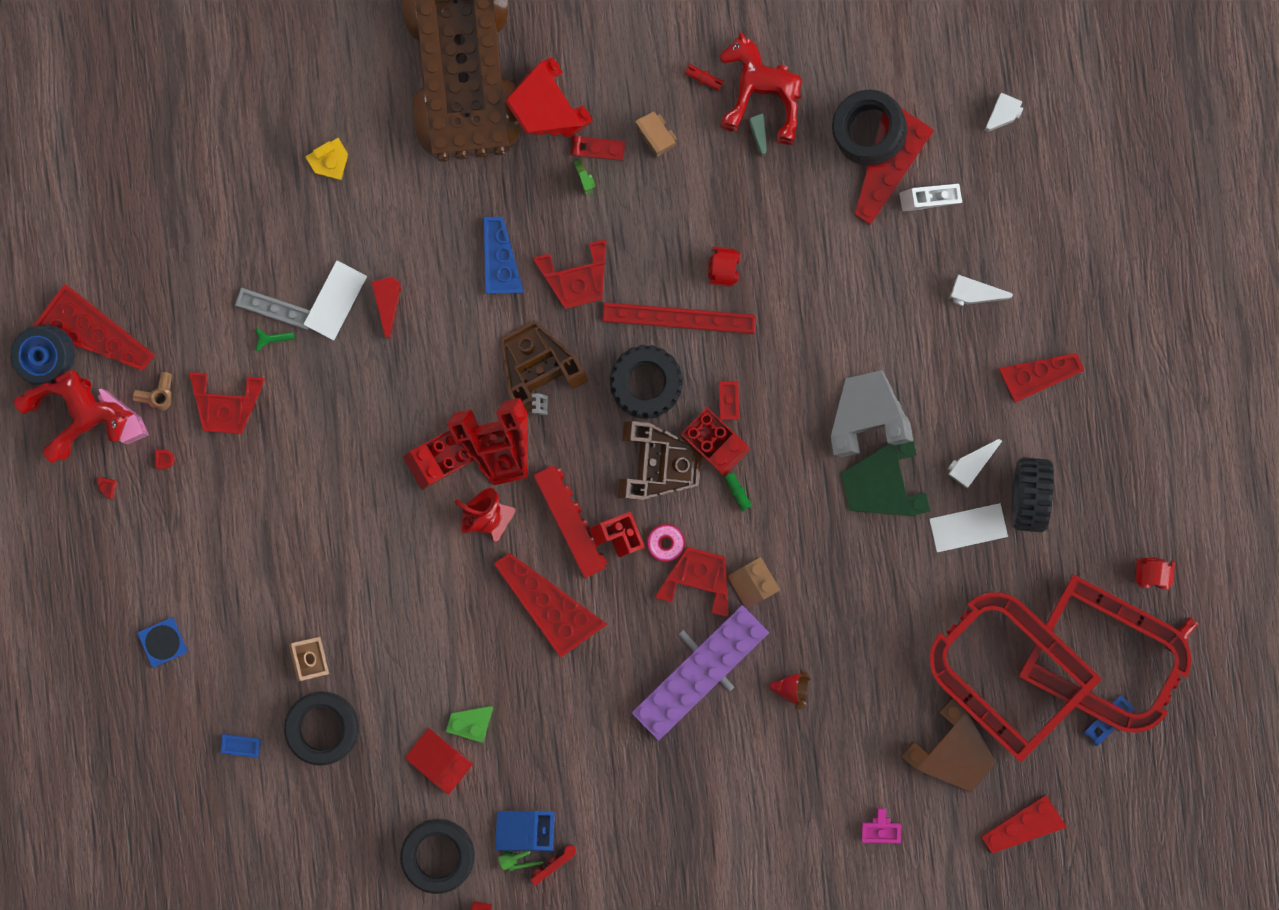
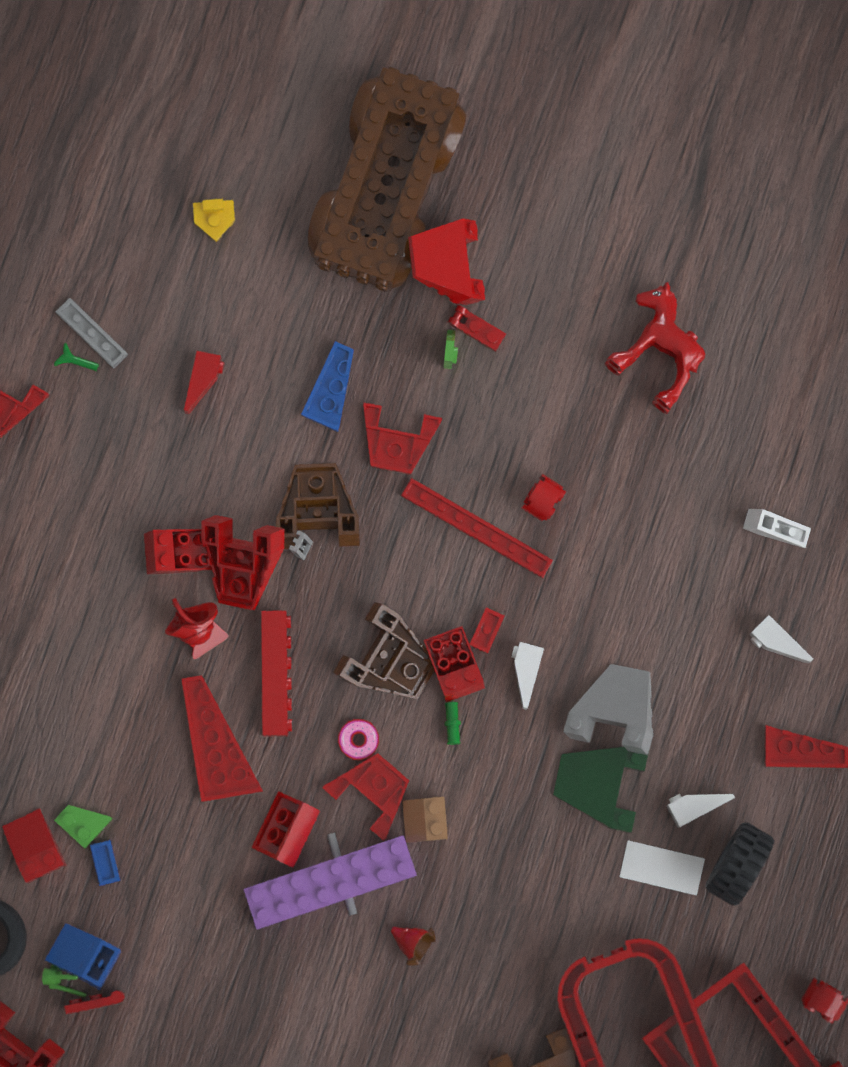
camera: 20 degrees right, 5 degrees down
(335, 300) = (153, 352): white sticker -> none
(505, 746) = (105, 862): none -> blue tile
(621, 531) = (320, 708): red brick -> none
(641, 647) = (285, 829): none -> red slope
(655, 134) = (538, 340): medium nougat slope -> none
(672, 381) = (419, 545): black tyre -> none
(703, 77) = (611, 309): red pin -> none
(757, 127) = (640, 383): sand green slope -> none
(776, 414) = (526, 667): none -> white slope
(858, 103) = (753, 404): black tyre -> none
(883, 178) = (765, 464): red wing -> none

